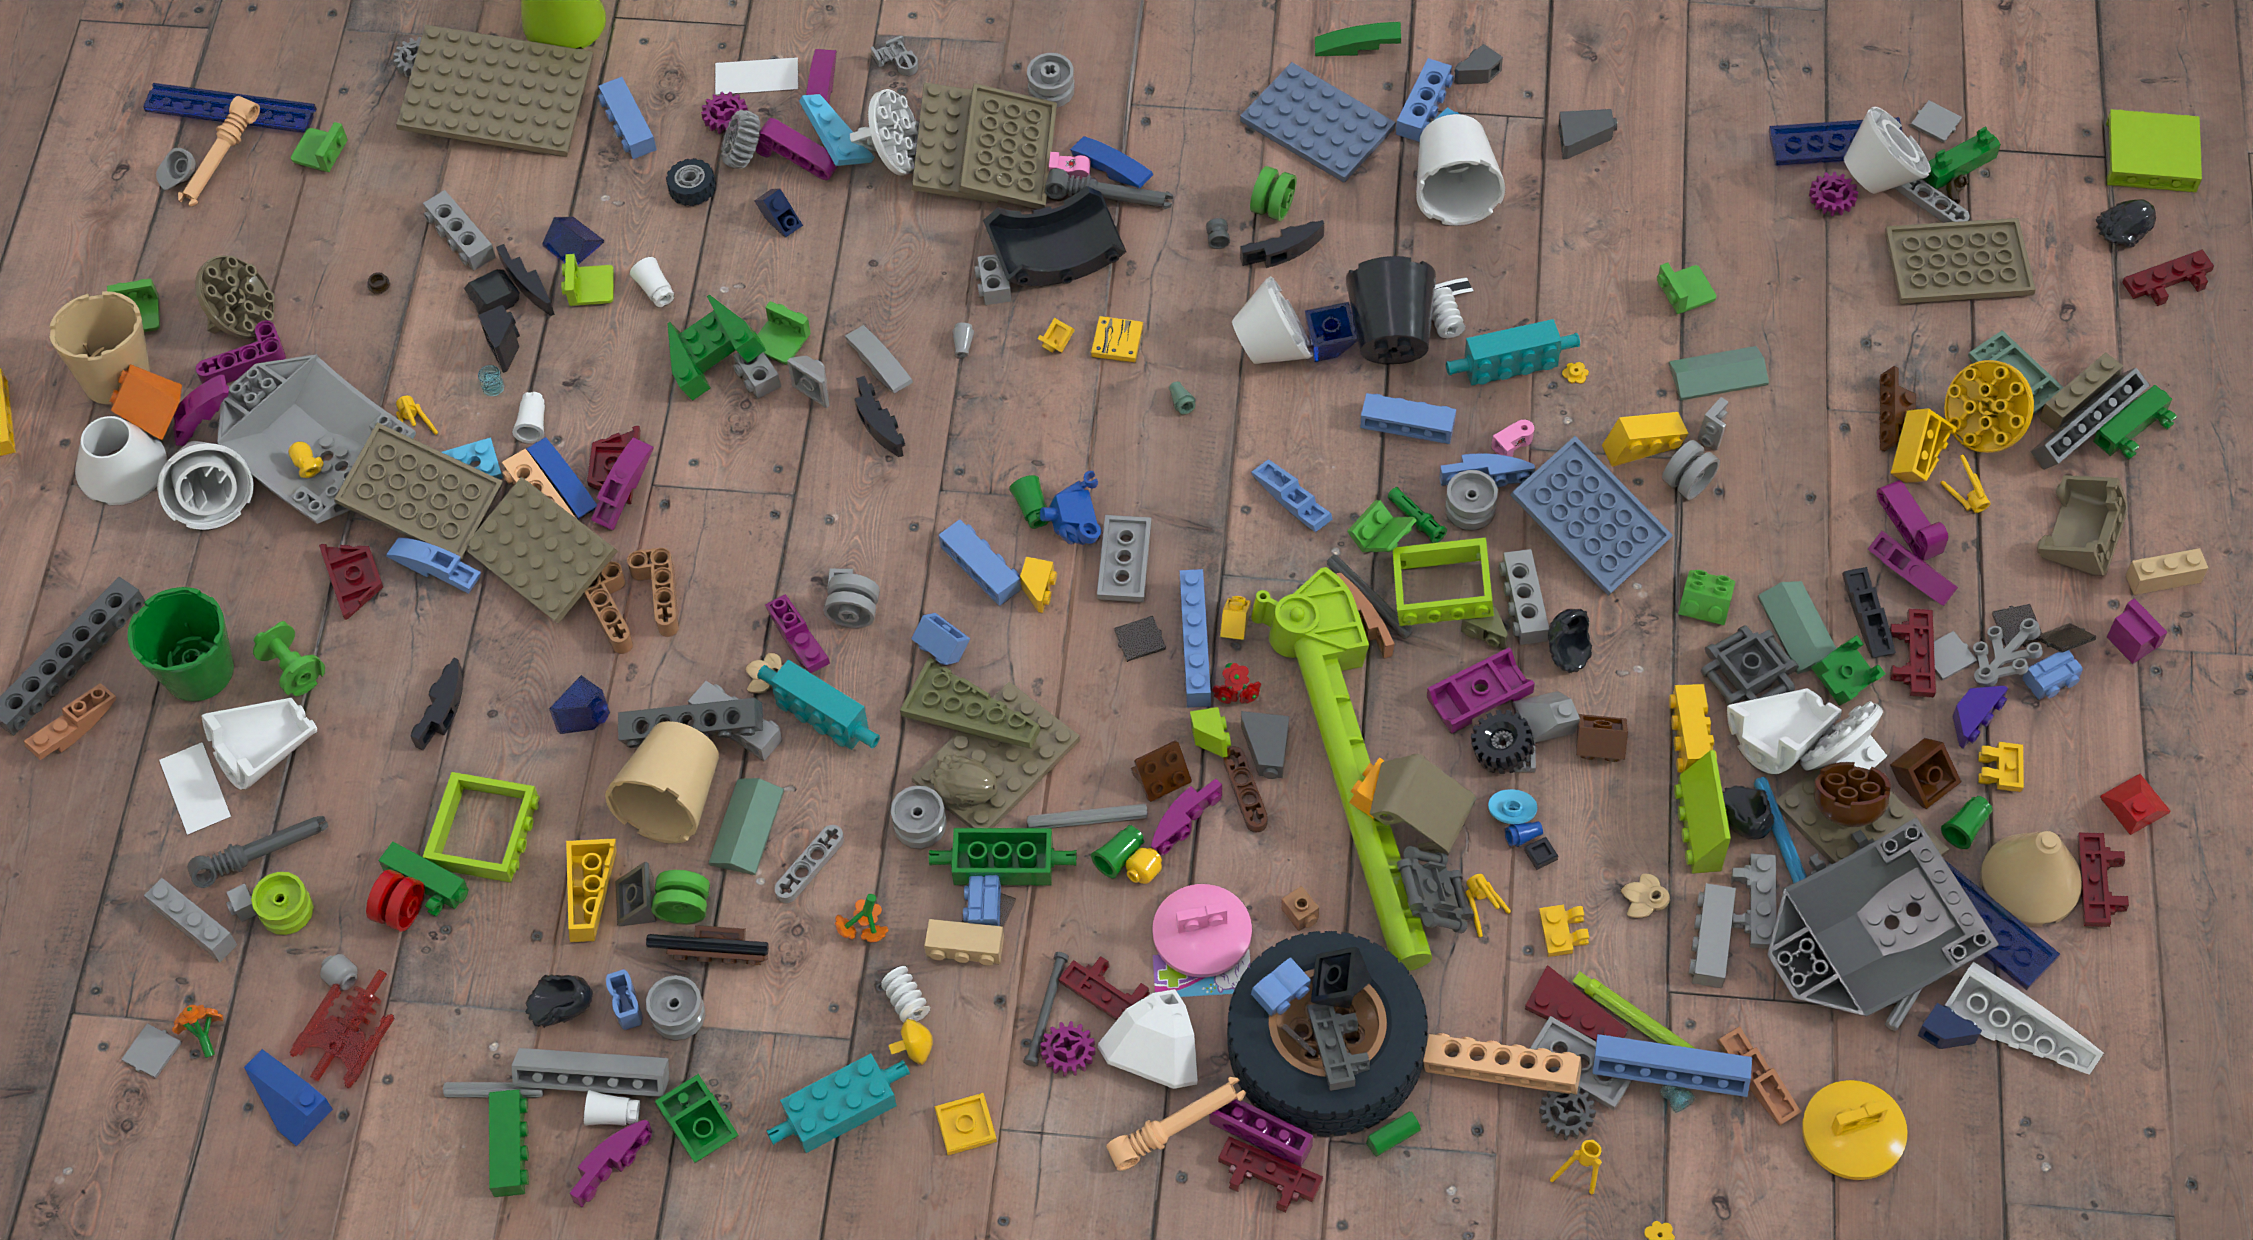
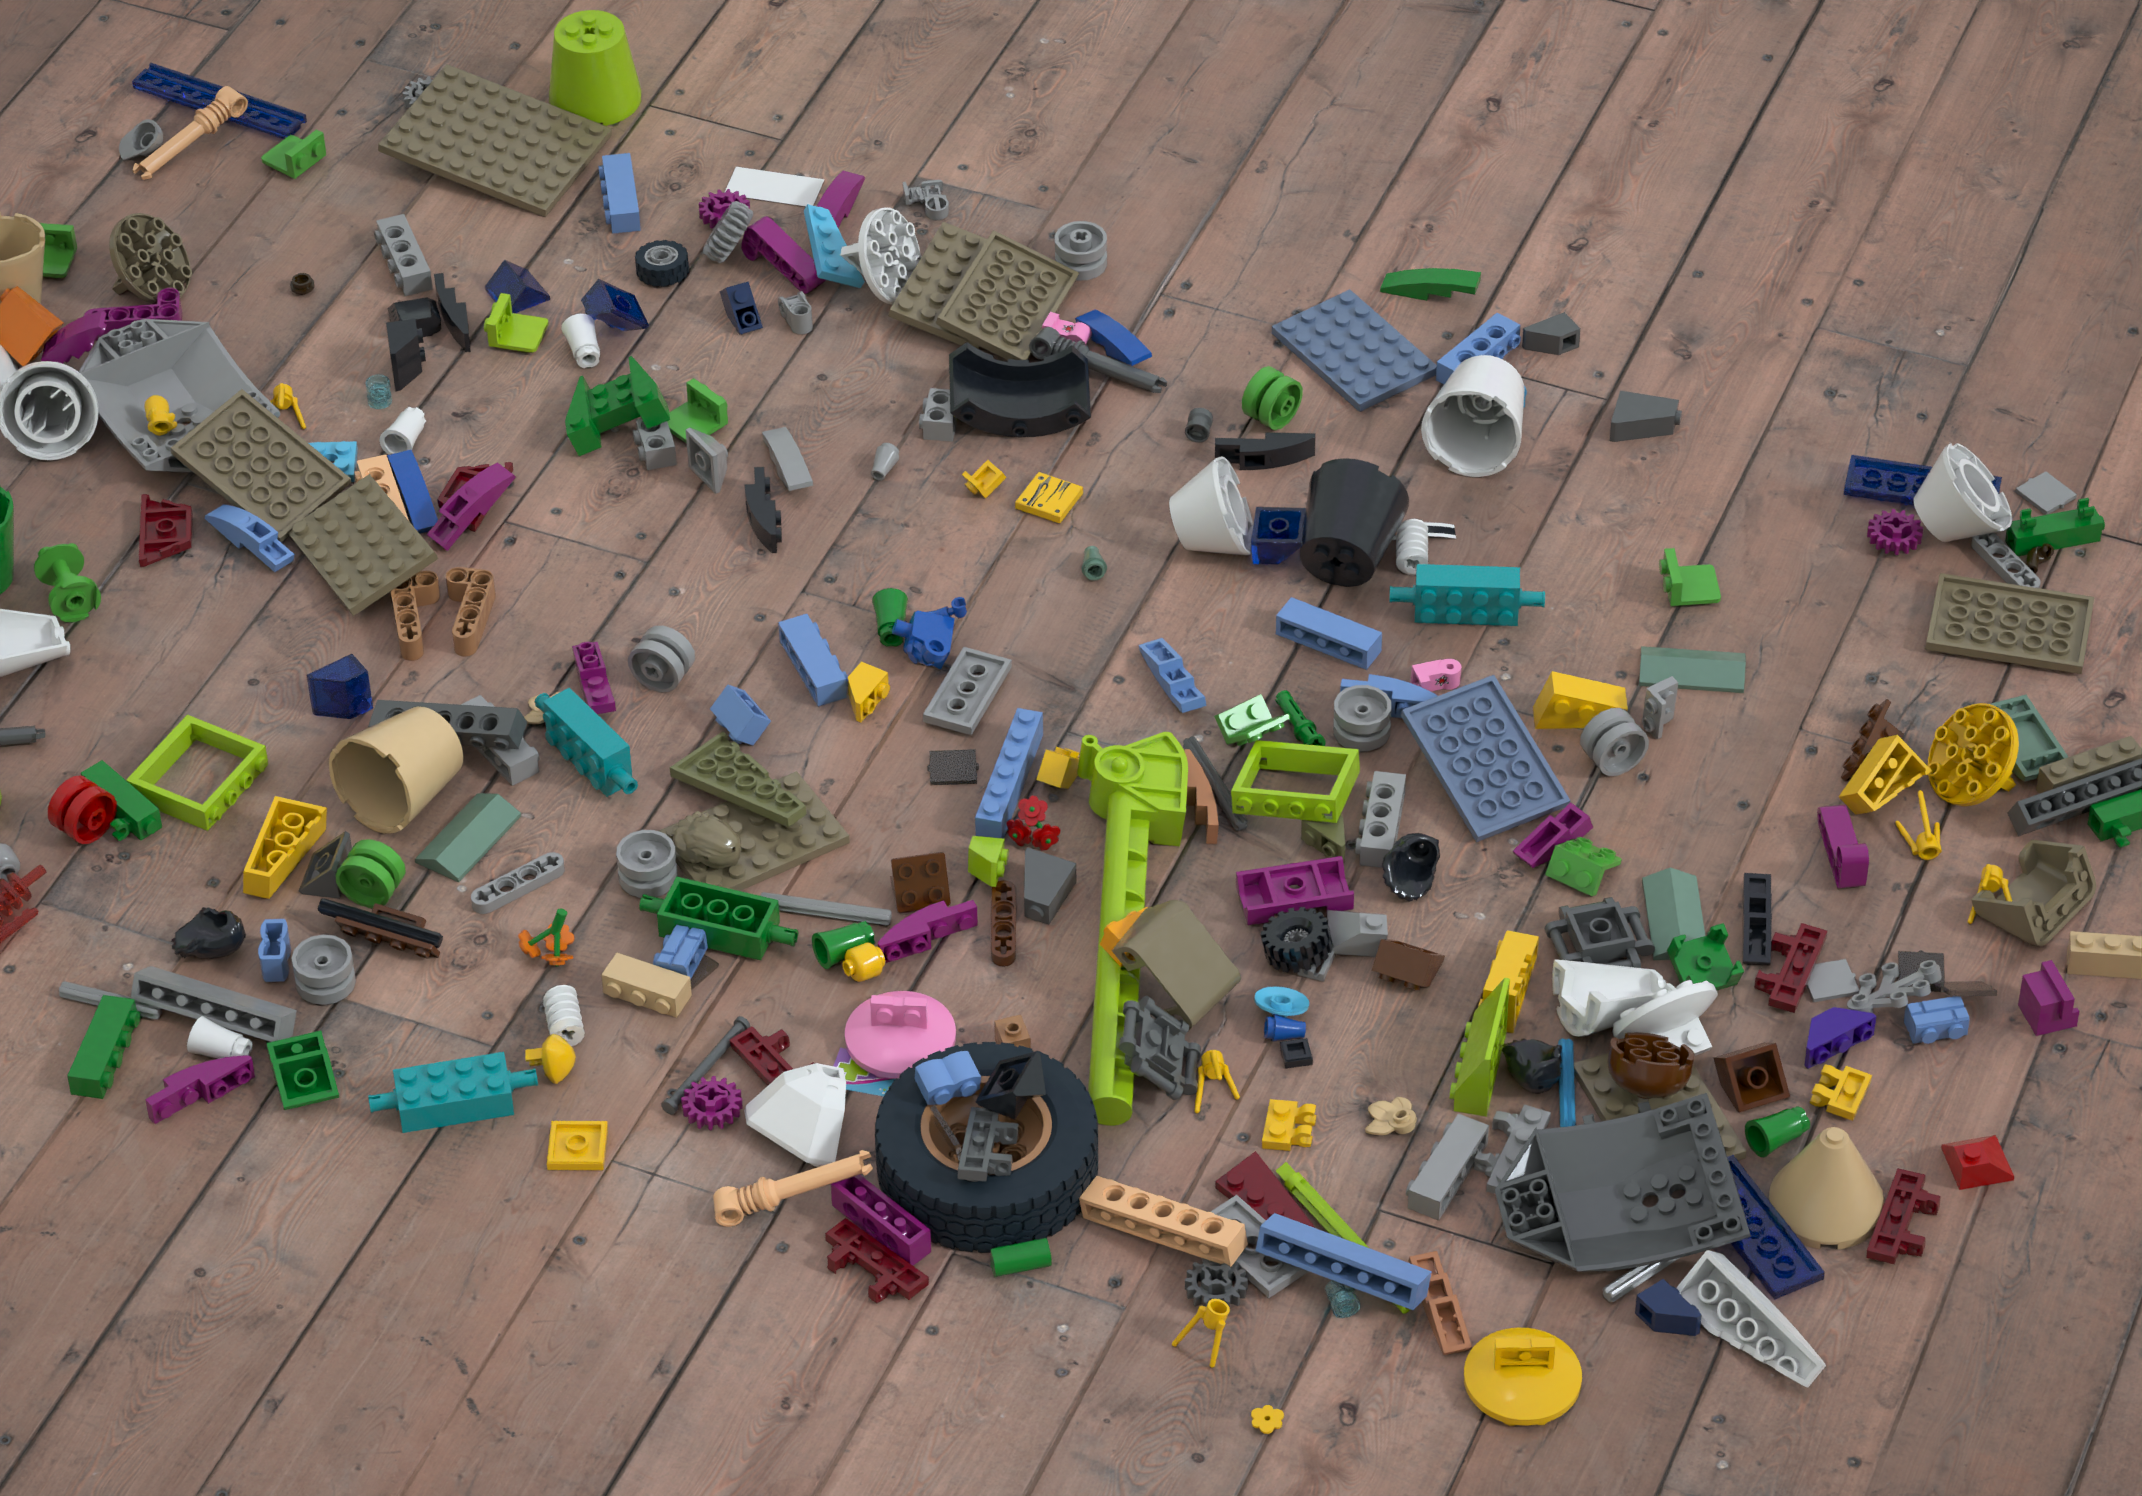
camera: 15 degrees right, 15 degrees down
(445, 702) = (208, 659): black slope -> none
(670, 242) = (614, 307): none -> clear blue slope
(828, 204) = (796, 313): none -> light grey piece
(1575, 373) = (1534, 635): yellow plant -> none
(1672, 575) = (1540, 844): none -> magenta slope
(1912, 568) = (1823, 888): magenta slope -> none
(2044, 523) = (1991, 880): none -> yellow plant

